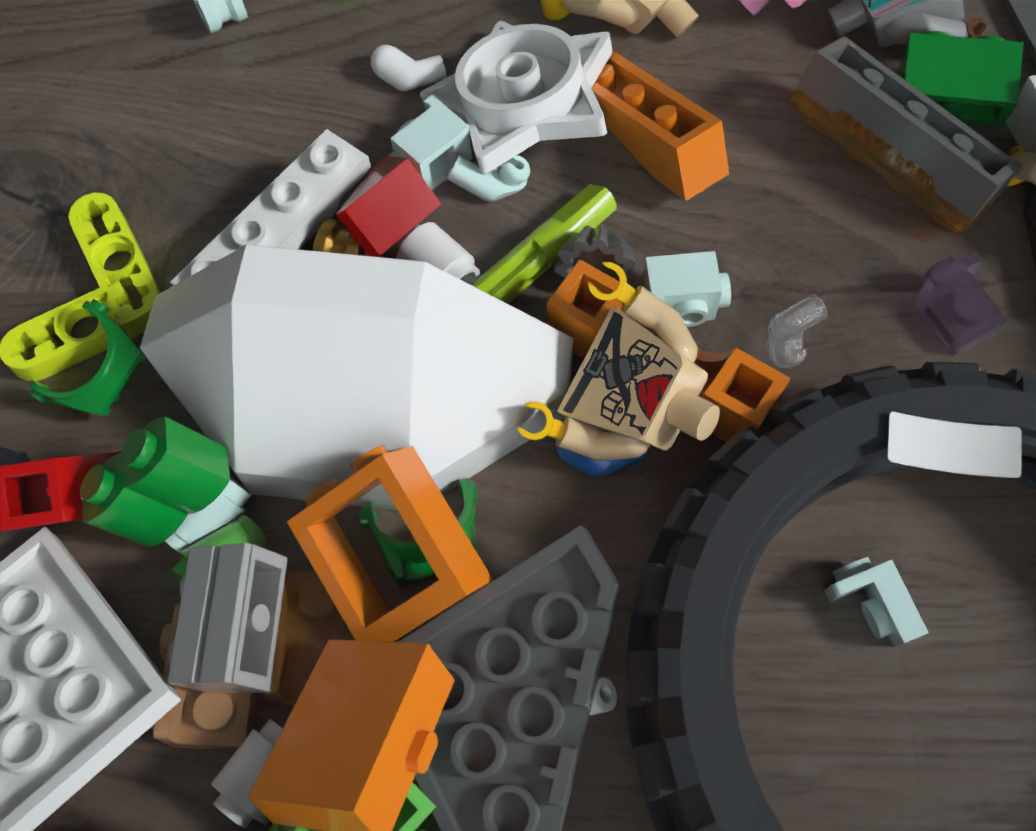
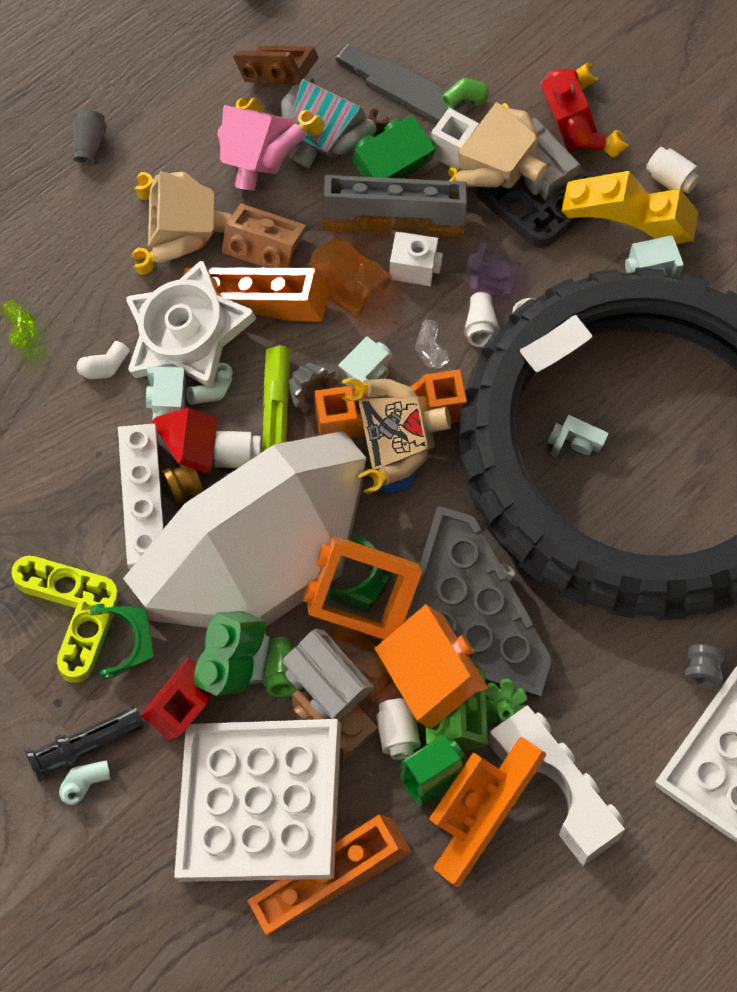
camera: 50 degrees left, 0 degrees up
(710, 62) = (261, 237): none -> medium nougat bracket
(770, 173) = (348, 274): none -> clear orange bracket
(870, 213) = (414, 258): none -> white brick
(889, 344) = (480, 320): none -> white cone

